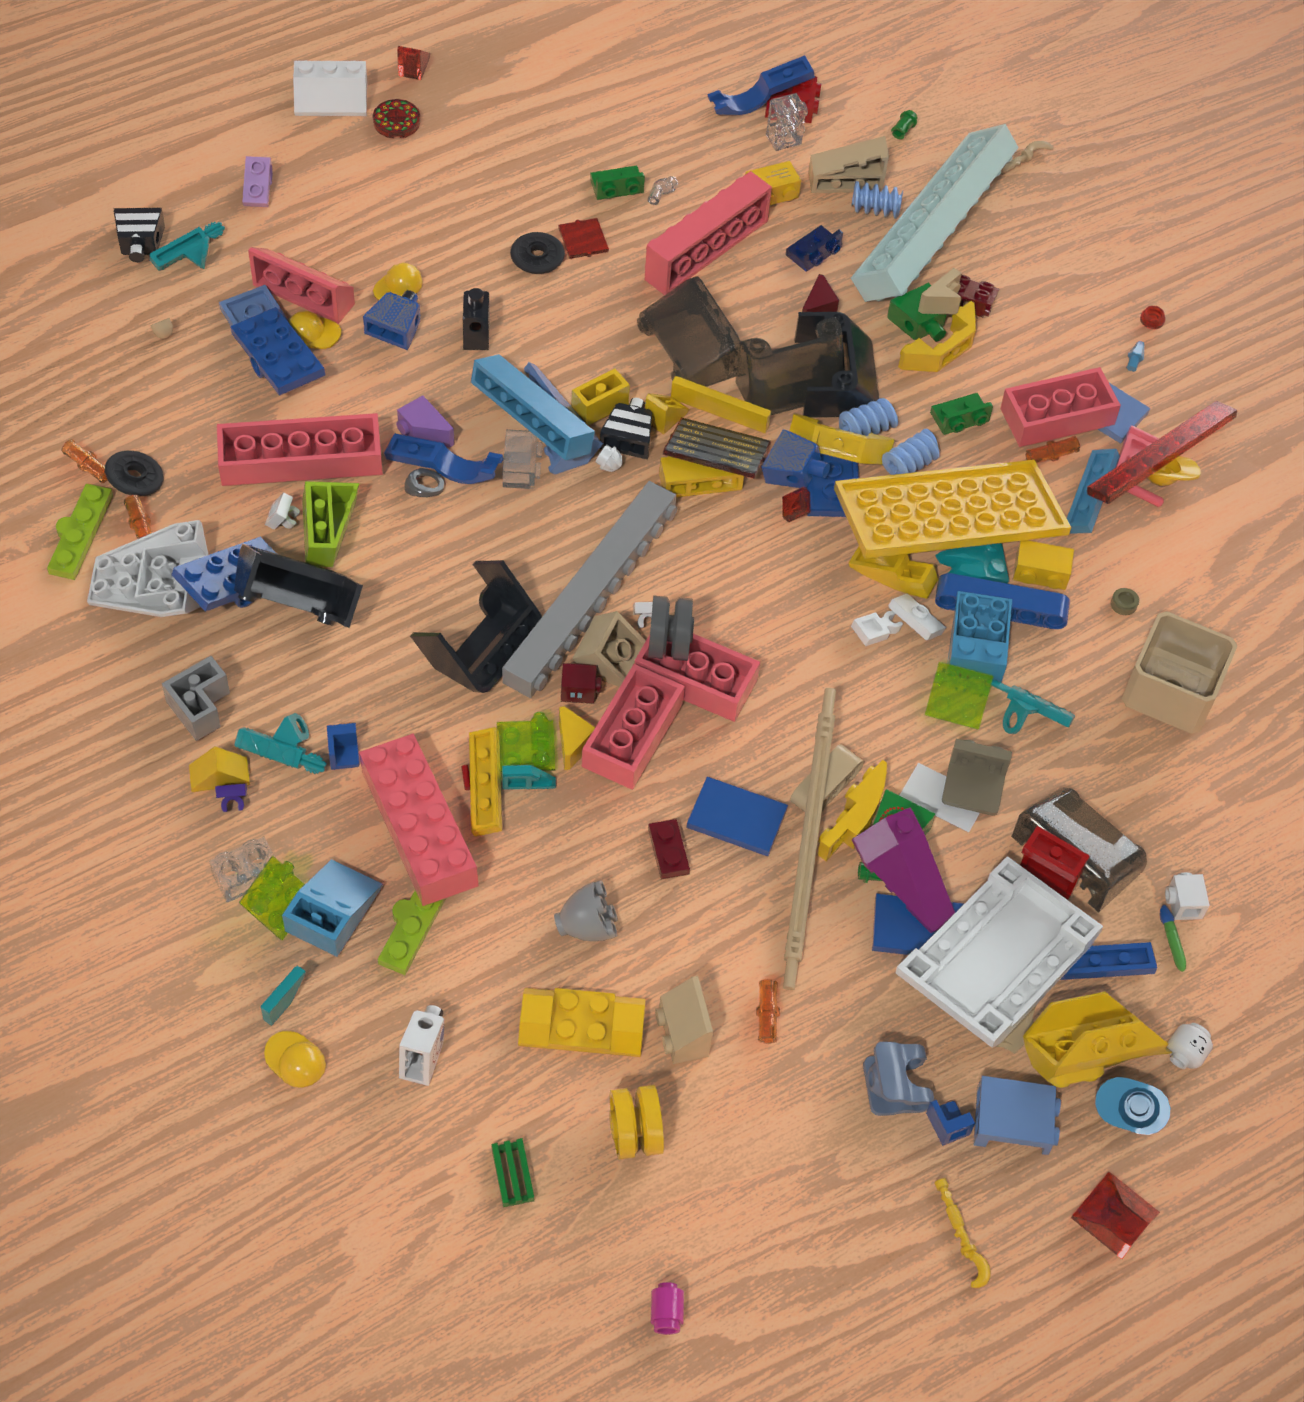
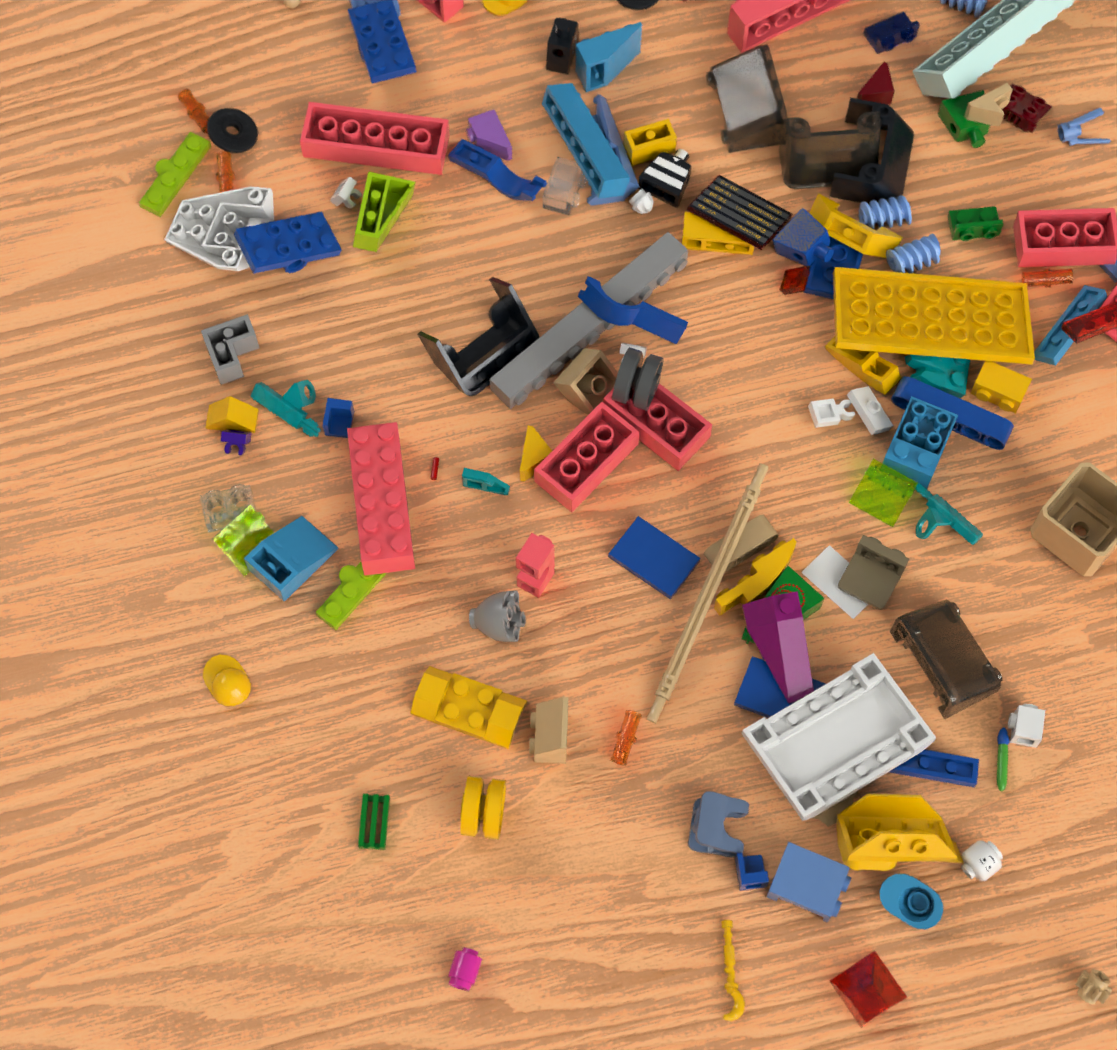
camera: 20 degrees right, 10 degrees up
(282, 996) = (229, 625): teal tile -> none
(296, 585) = (335, 262): black windscreen -> none
(315, 330) = (421, 26): yellow cap -> none
(394, 319) = (492, 29): blue torso -> none
(419, 490) = (469, 197): dark grey piece -> none
(425, 1037) = (329, 695): white torso -> none
(485, 782) = (448, 476): yellow tile -> none
(526, 321) = (607, 55): none -> dark azure slope
(527, 743) = (493, 451): clear neon green hinge -> none
(579, 683) = (553, 406): dark red brick -> none
(615, 847) = (536, 564): none -> coral arch
(648, 569) = (641, 315): none -> blue piece
(665, 411) = (705, 166): yellow slope -> none
(668, 849) = (586, 573): dark red plate -> none
(720, 404) = (756, 170): yellow tile -> none
(921, 357) = (953, 160): yellow slope -> none
(1027, 306) = (1071, 130): none -> medium blue plant
(1054, 861) = (910, 670): red panel -> none
(1125, 601) = (1066, 437): olive tile -> none

